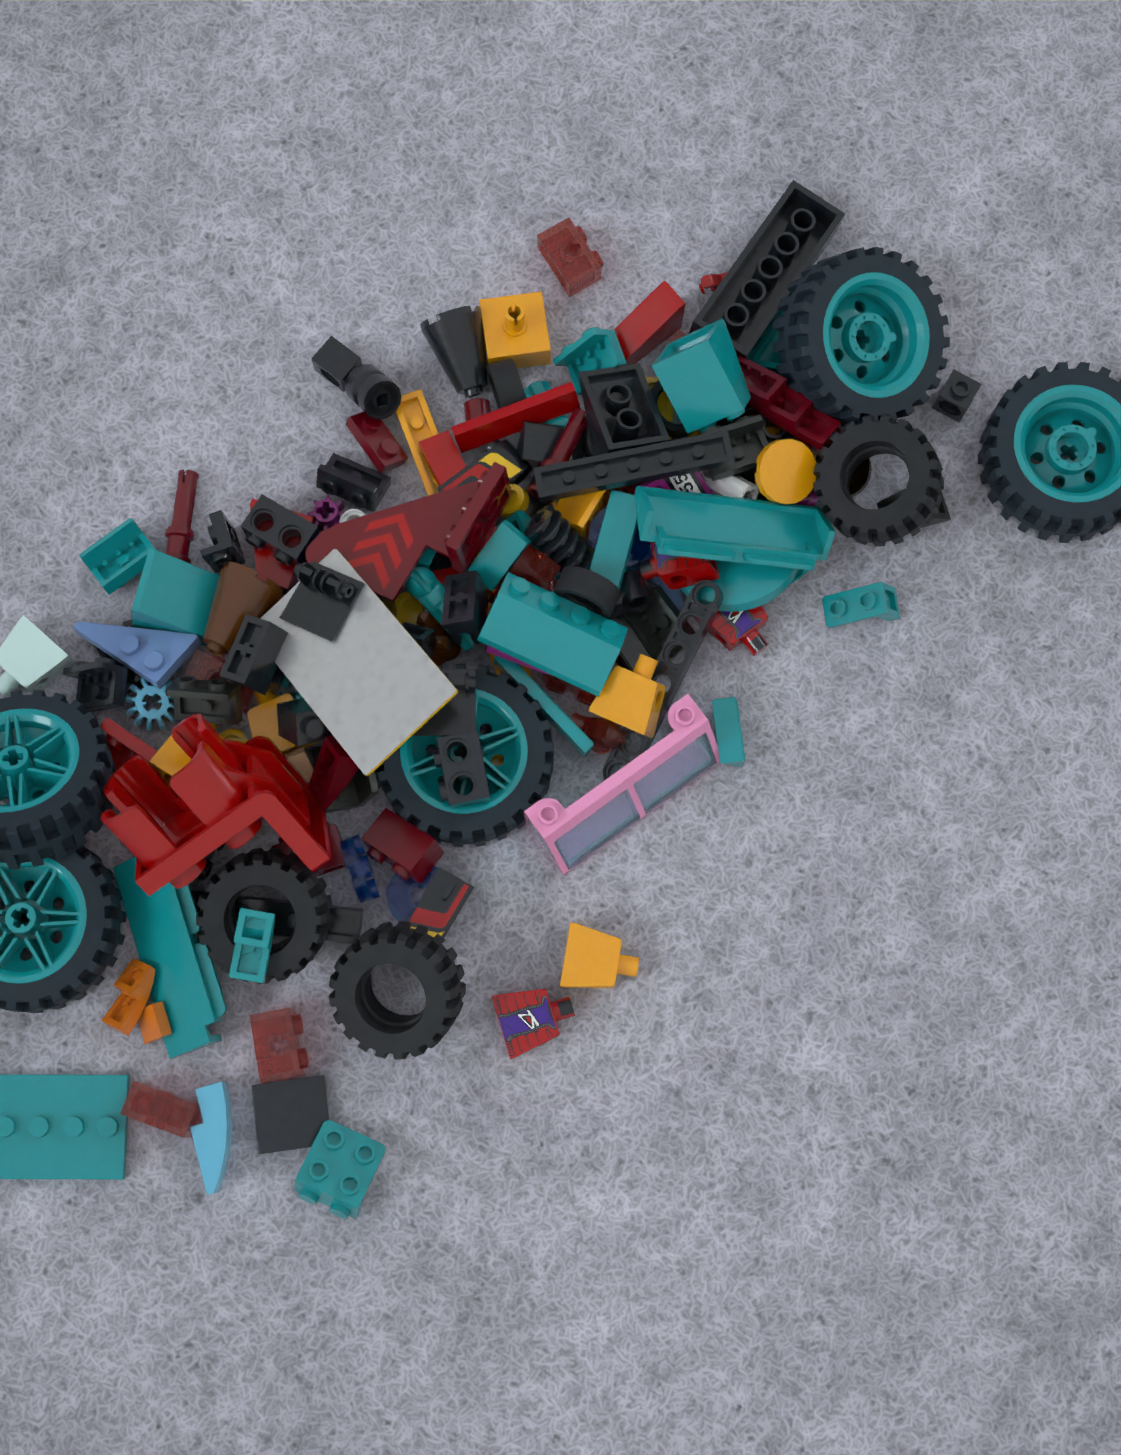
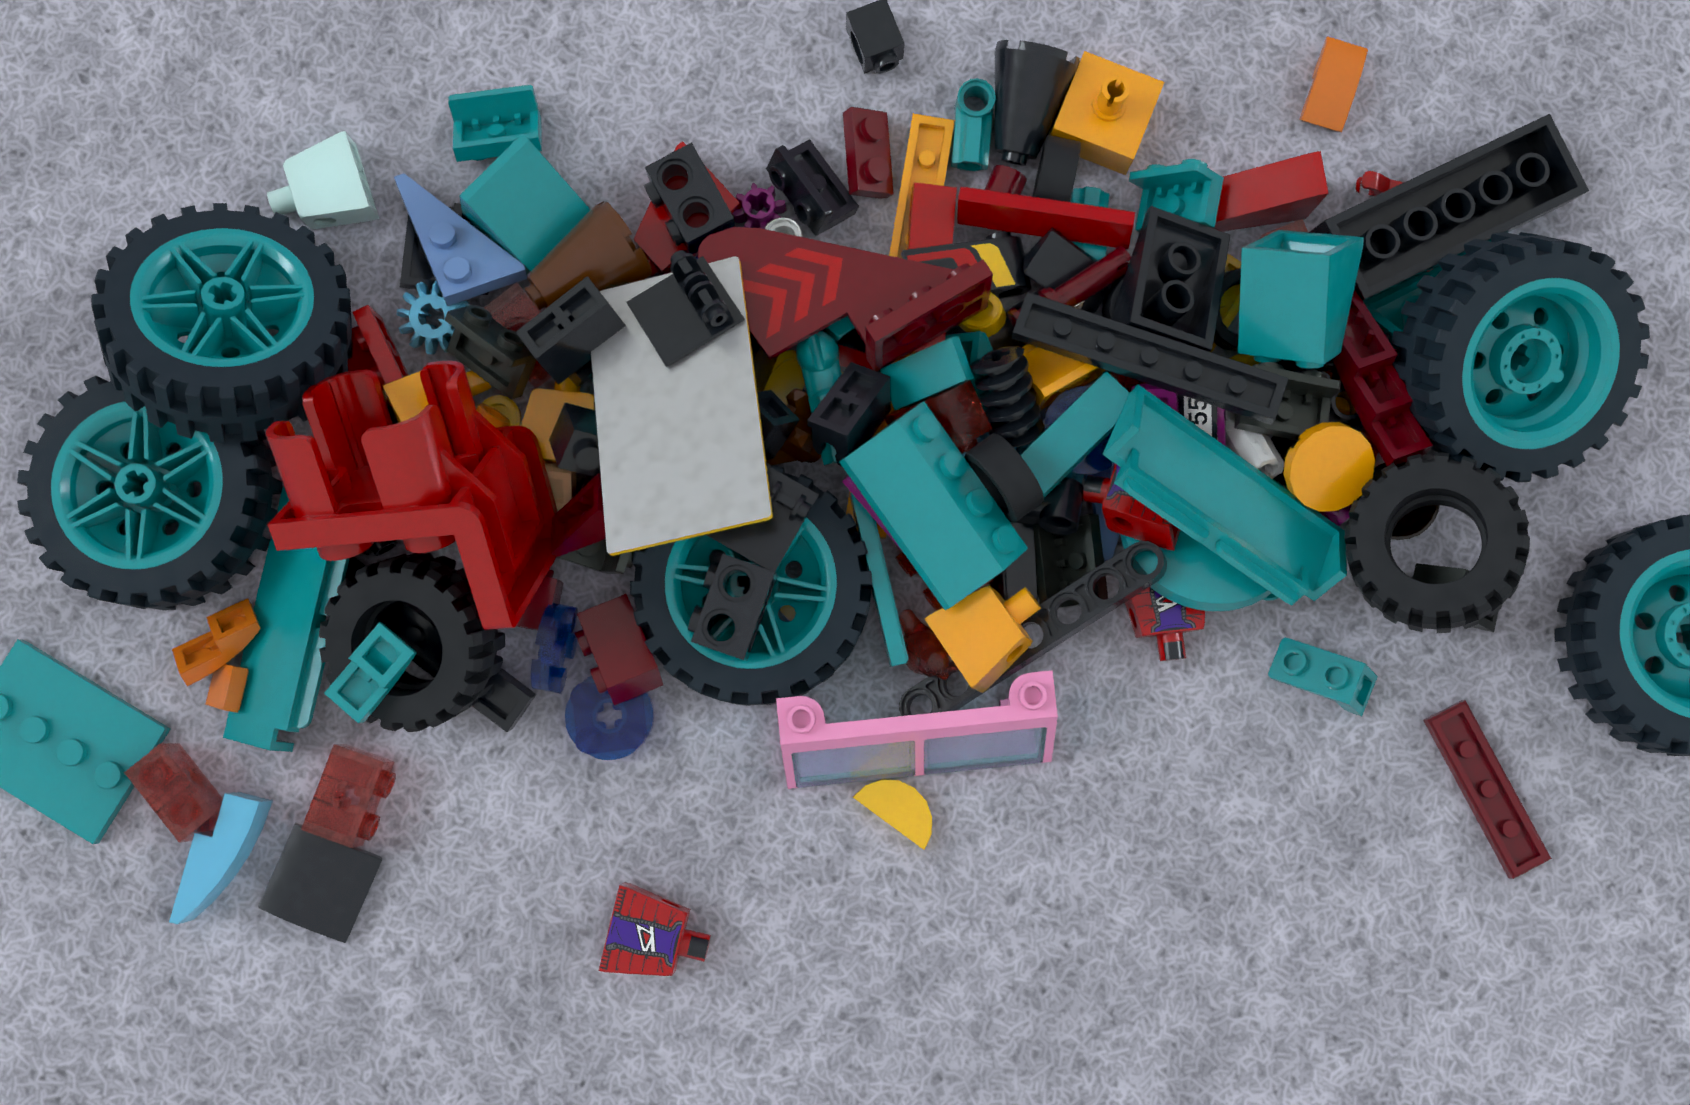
camera: 30 degrees right, 5 degrees up
(99, 684) = (385, 262): black bracket -> none
(180, 531) = (580, 134): dark red pin -> none
(228, 545) = (624, 175): black bracket -> none
(339, 1169) = (336, 978): teal bracket -> none
(373, 391) = (895, 92): black wheel -> none
(373, 1023) = (467, 834): black tyre -> none
(435, 387) = (972, 127): none -> teal piece
(441, 903) = (602, 757): black door -> none
(571, 272) = (1213, 79): clear red brick -> none
(594, 959) = (764, 910): light orange torso -> none
(642, 844) = (899, 807): none -> yellow tile
(649, 234) = (1334, 84): none -> orange slope
(728, 731) = (1077, 735): teal slope -> none
(956, 396) = (1591, 488): black brick -> none
(1004, 619) = (1487, 789): none -> dark red tile

